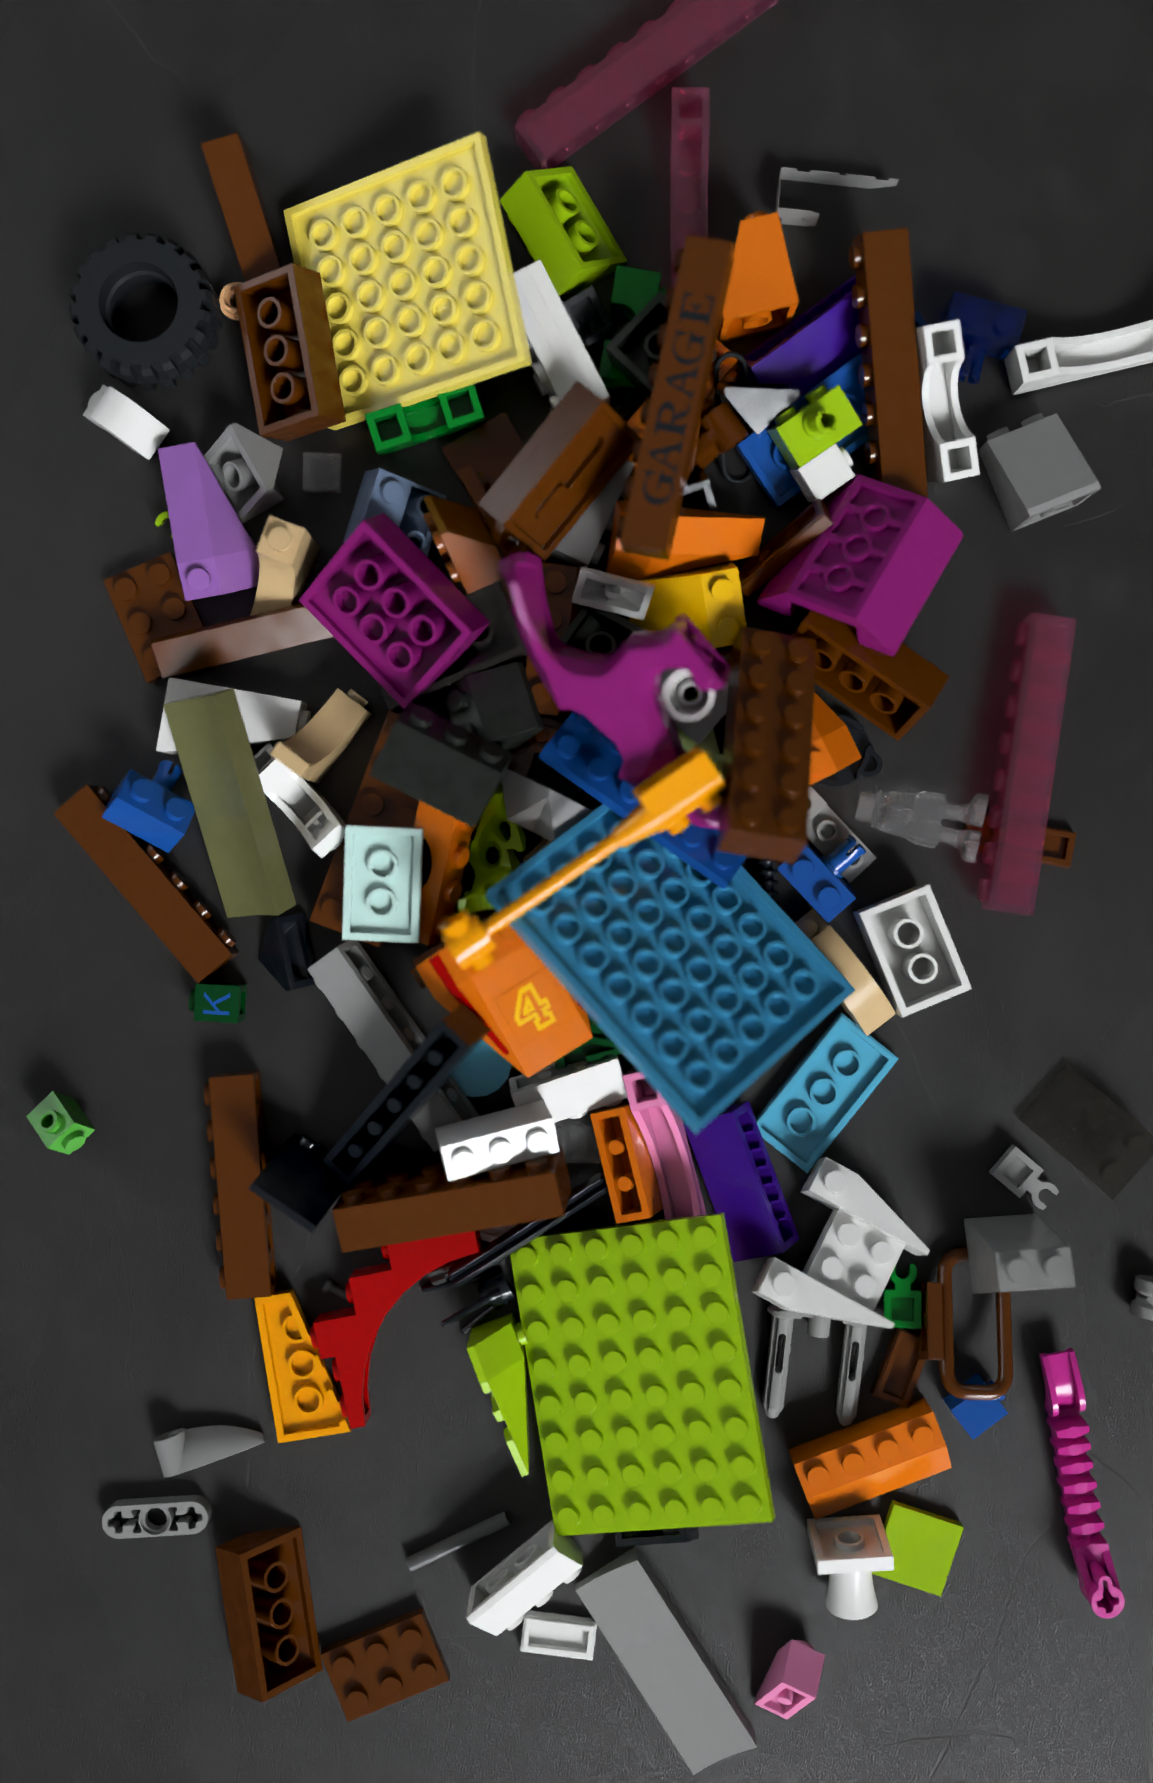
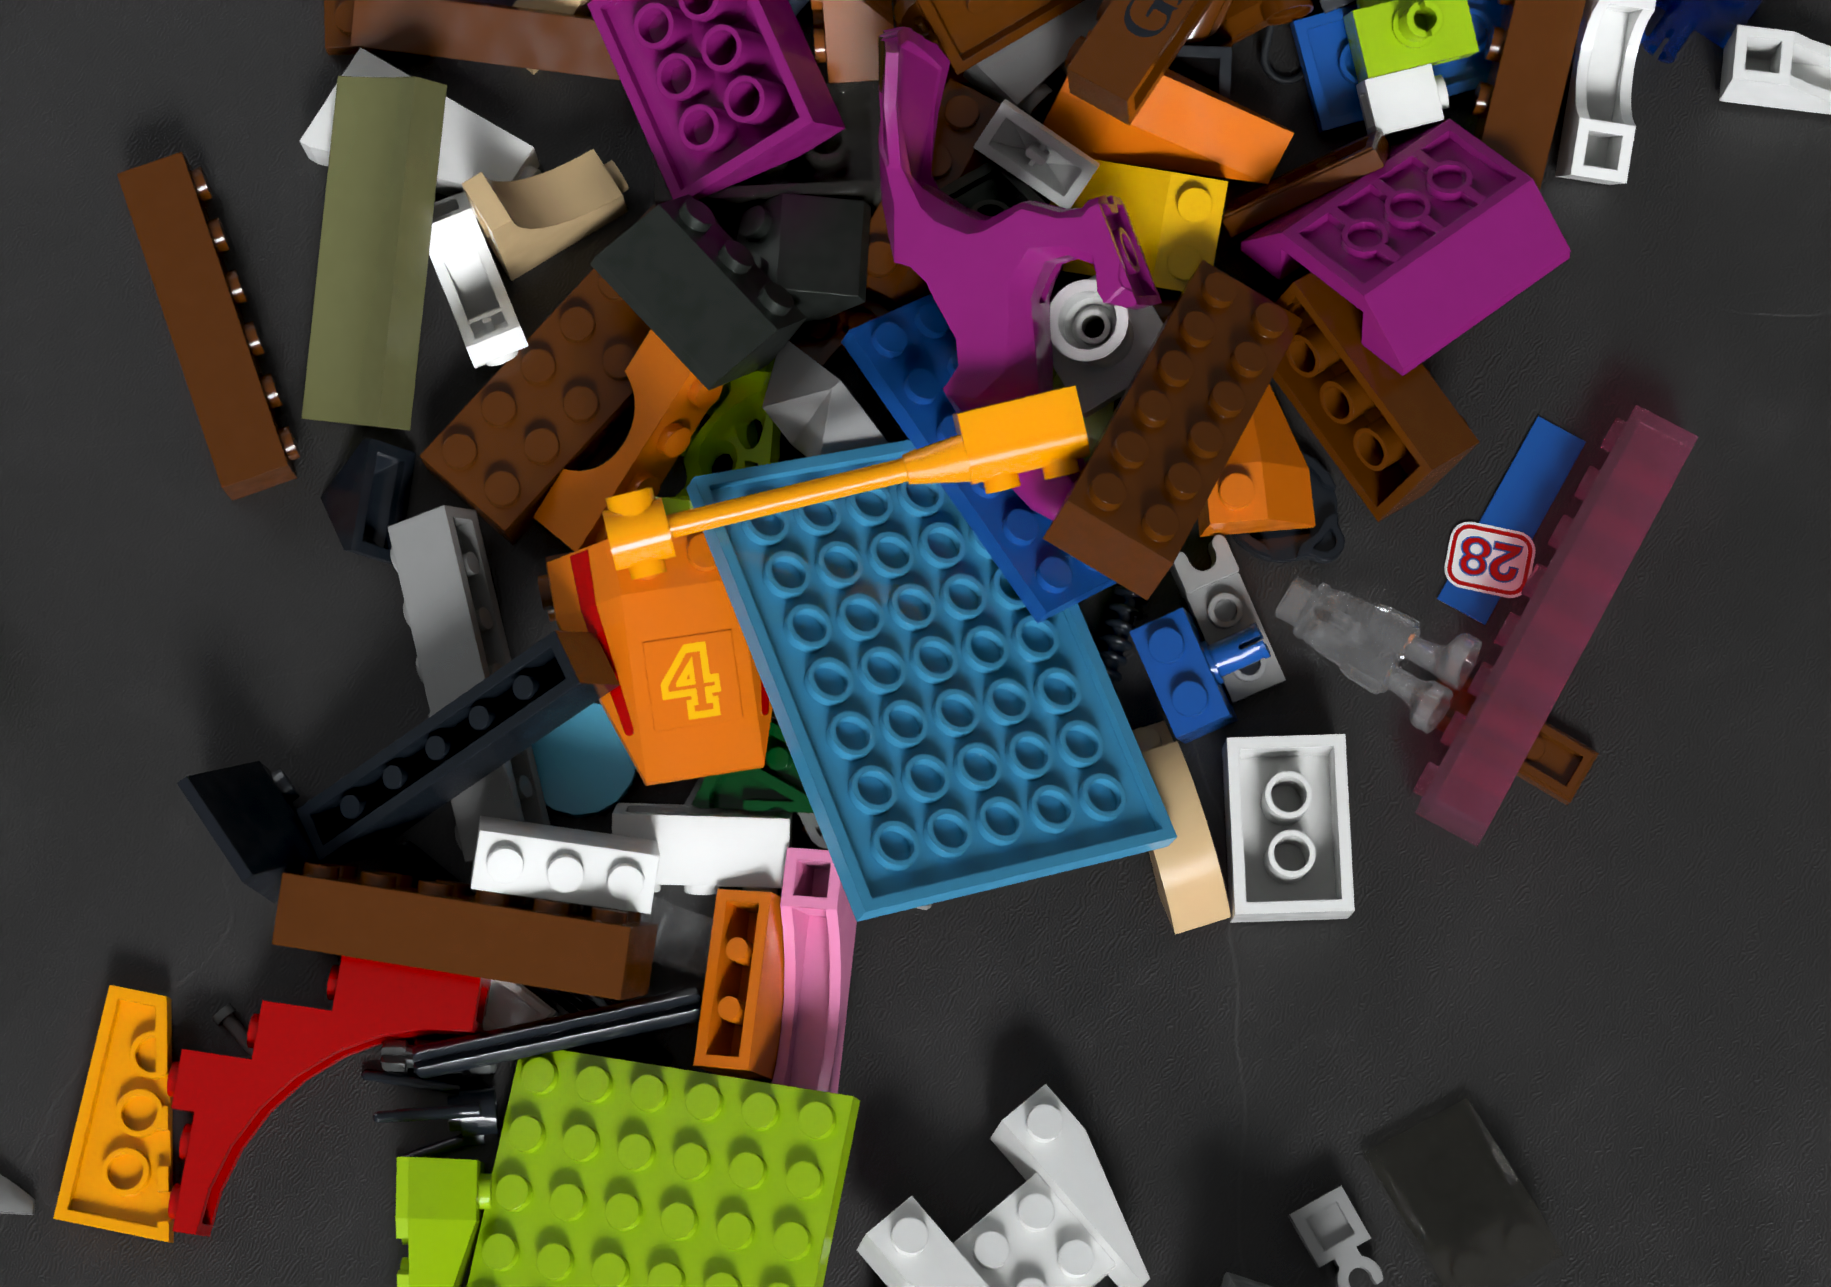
camera: 25 degrees right, 10 degrees down
(150, 807) = (259, 217): blue brick -> none
(218, 1002) = (240, 531): dark green brick -> none
(238, 1160) = (156, 825): reddish brown brick -> none
(382, 883) = (547, 433): light aqua plate -> none
(743, 1183) = (907, 1084): dark purple brick -> none
(824, 1092) = (1080, 1000): medium azure tile -> none
(973, 730) = (1498, 552): none -> blue sticker
(1036, 470) = (1713, 214): light grey slope -> none

